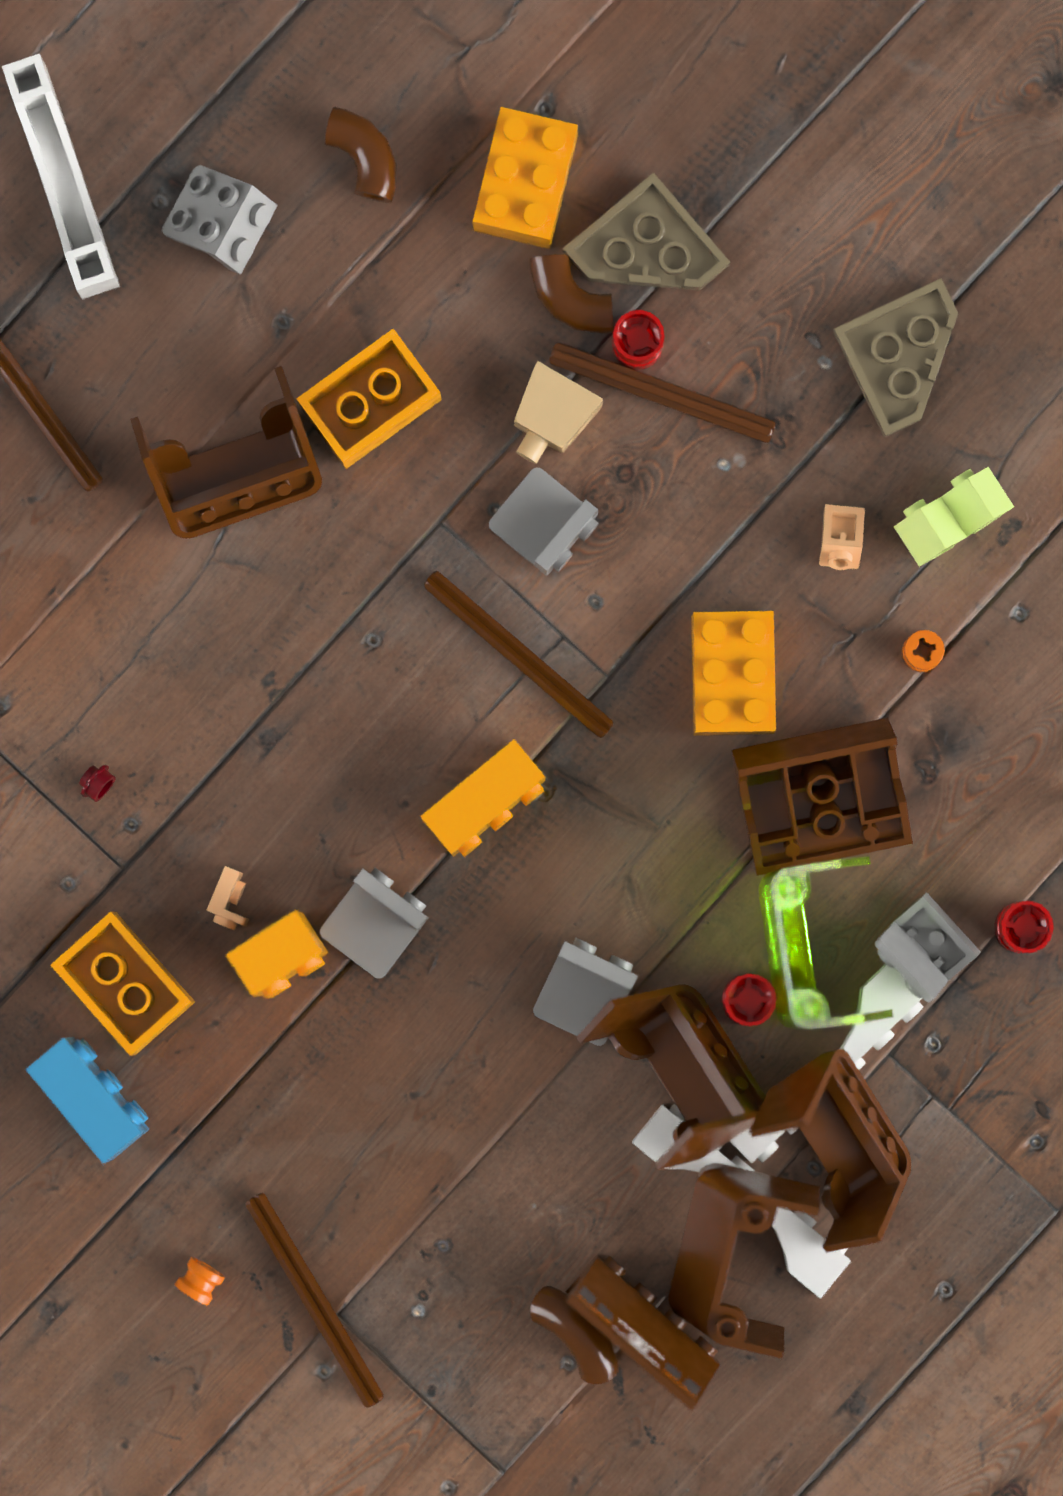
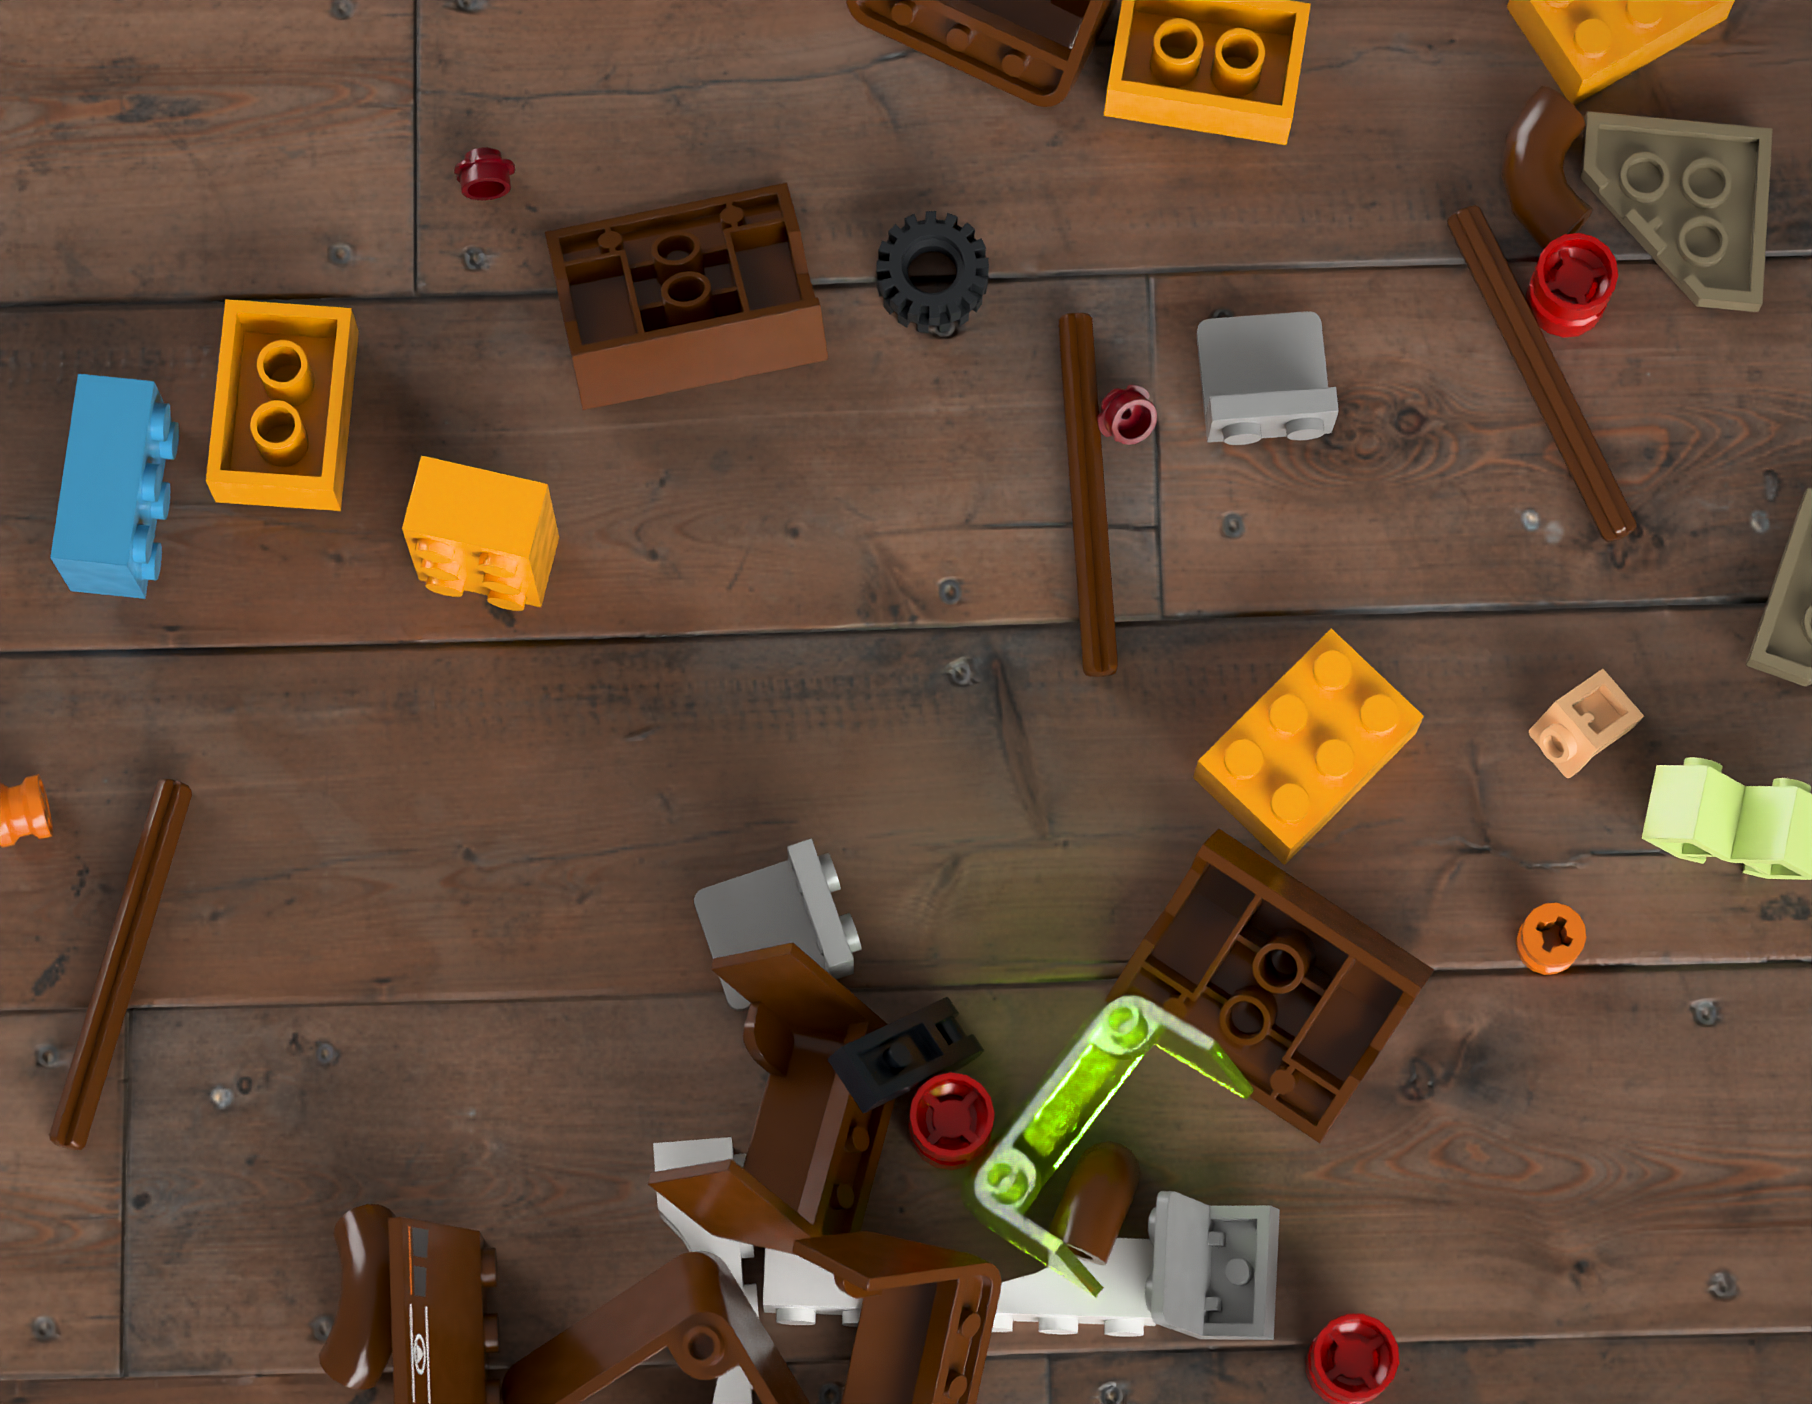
camera: 40 degrees right, 10 degrees down
(227, 891) = (497, 425): light nougat bracket -> none
(246, 746) = (686, 296): none -> reddish brown piece
(345, 647) = (932, 236): none -> black tyre
(374, 923) = (624, 619): light grey bracket -> none
(485, 799) = (884, 600): light orange brick -> none
(500, 601) = (1135, 423): none -> dark red plate
(553, 412) = (1396, 273): tan torso -> none
(701, 993) = (904, 1055): none -> black plate
(847, 970) = (1097, 1201): none -> reddish brown cylinder

